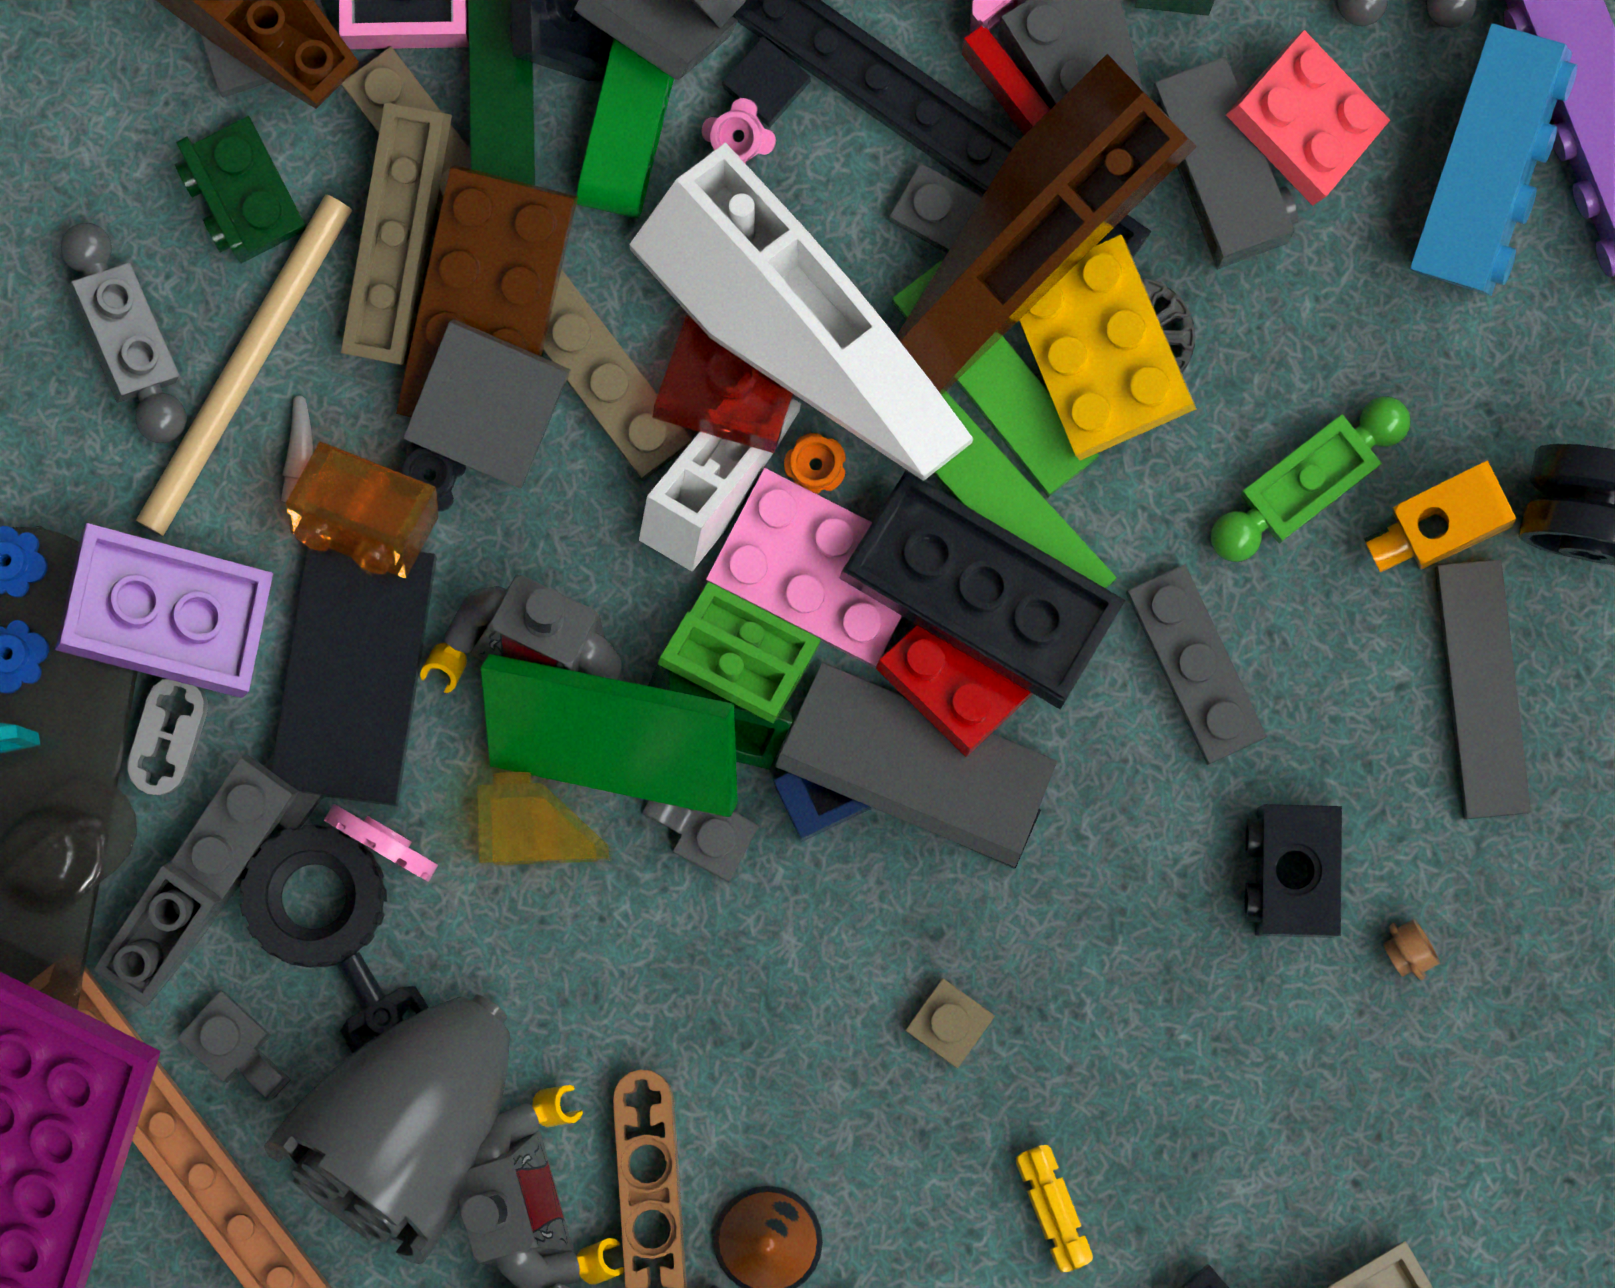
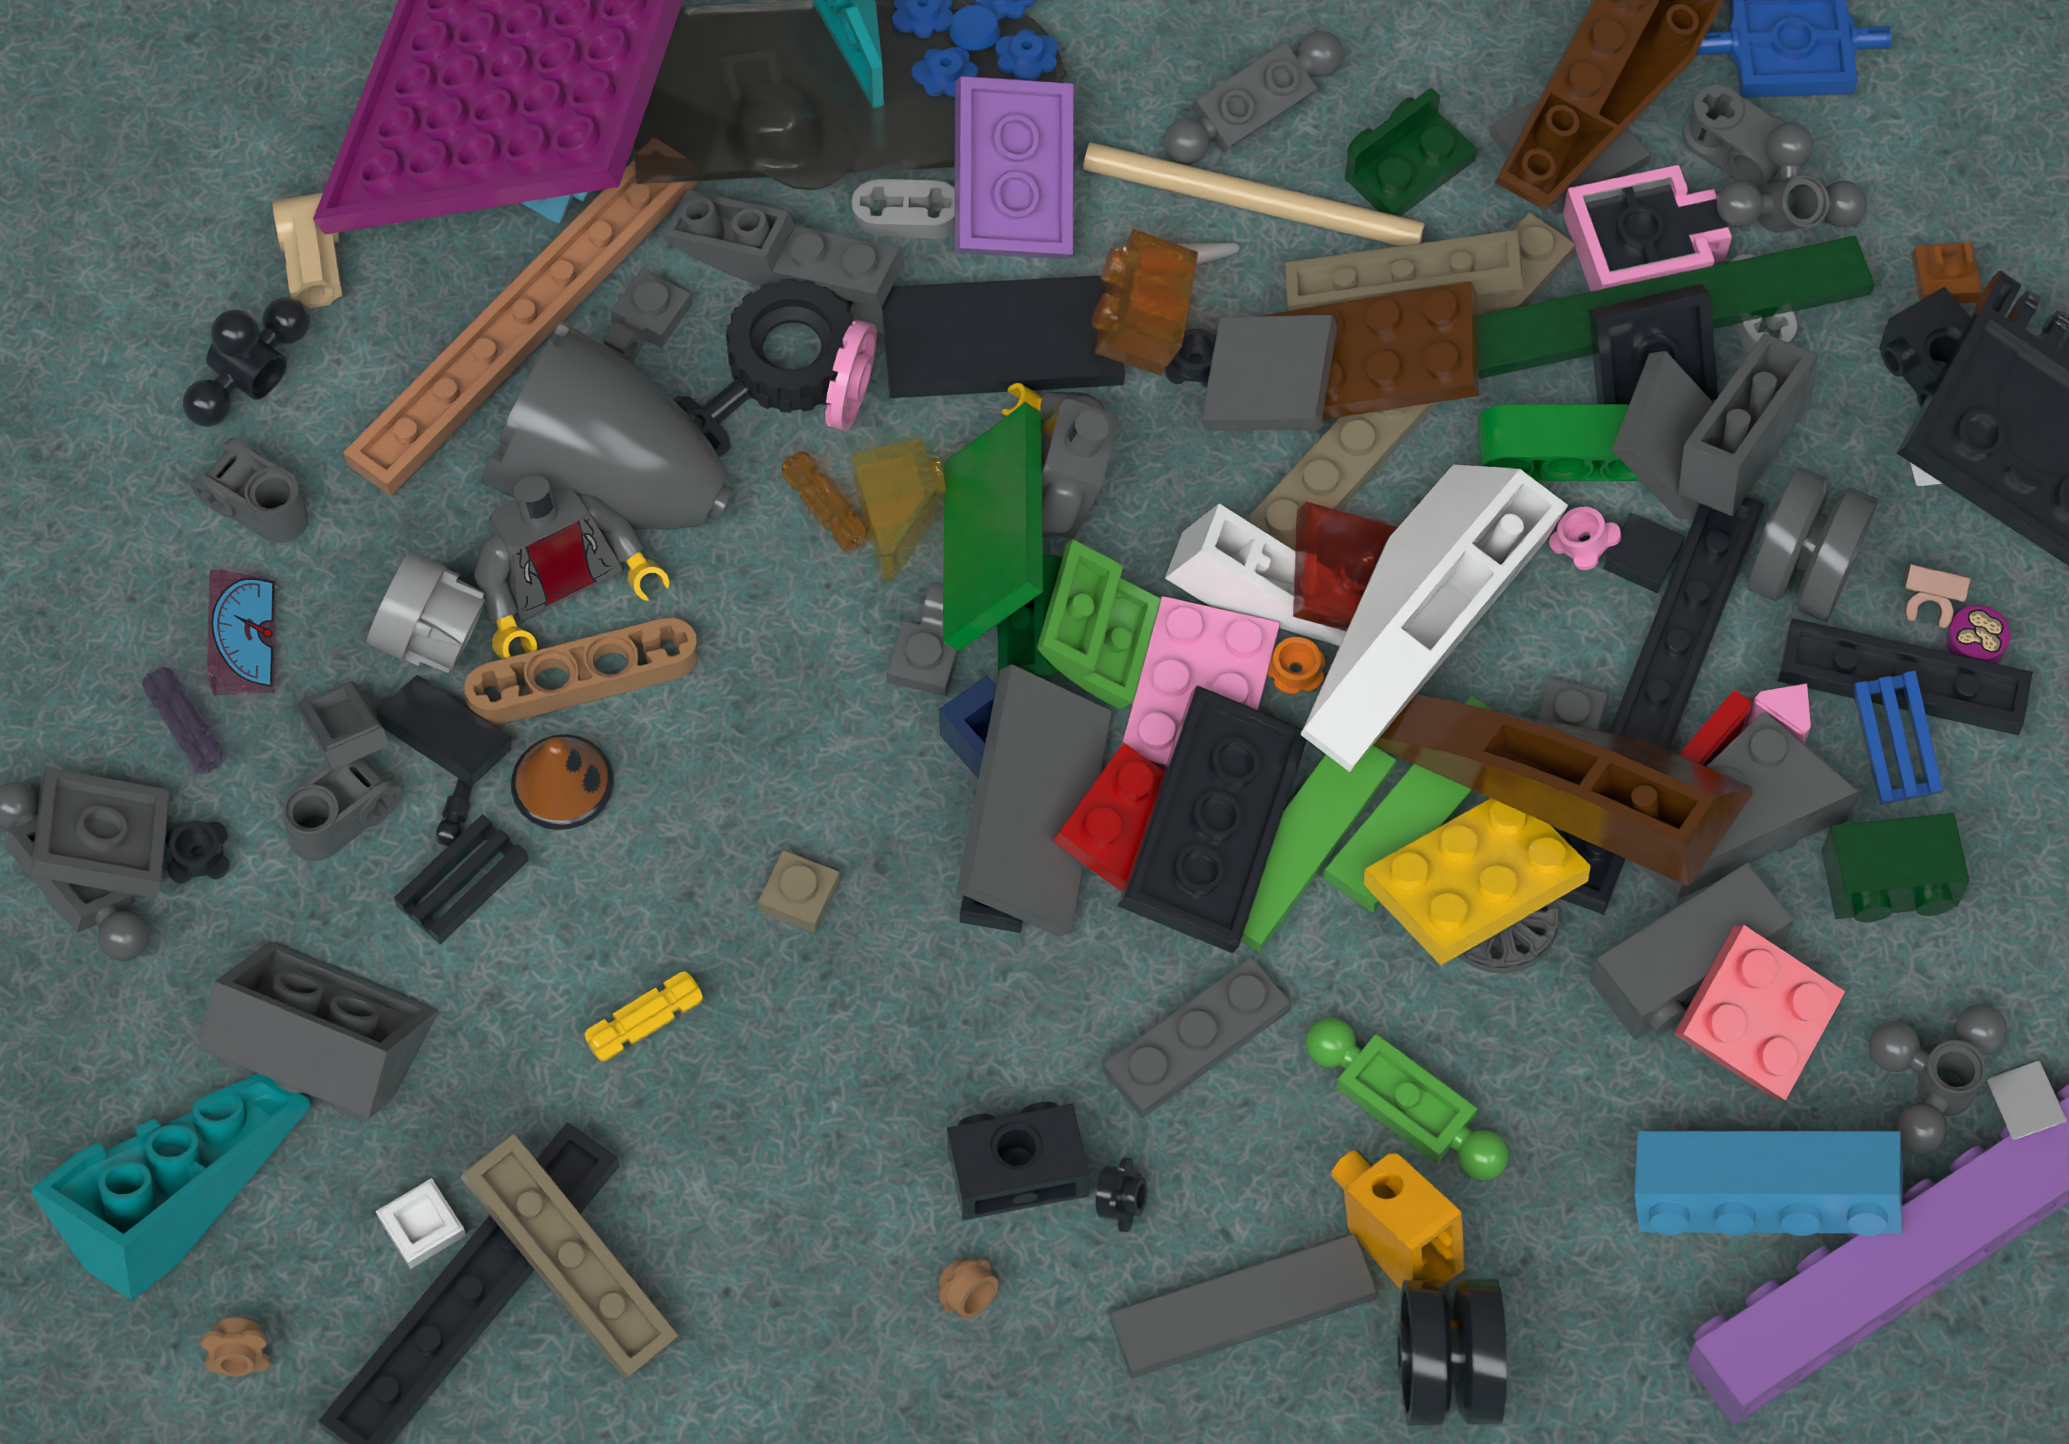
camera: 75 degrees right, 20 degrees down
(507, 901) = (825, 501): none -> clear orange axle
(1351, 778) = (1121, 1194): none -> black plate

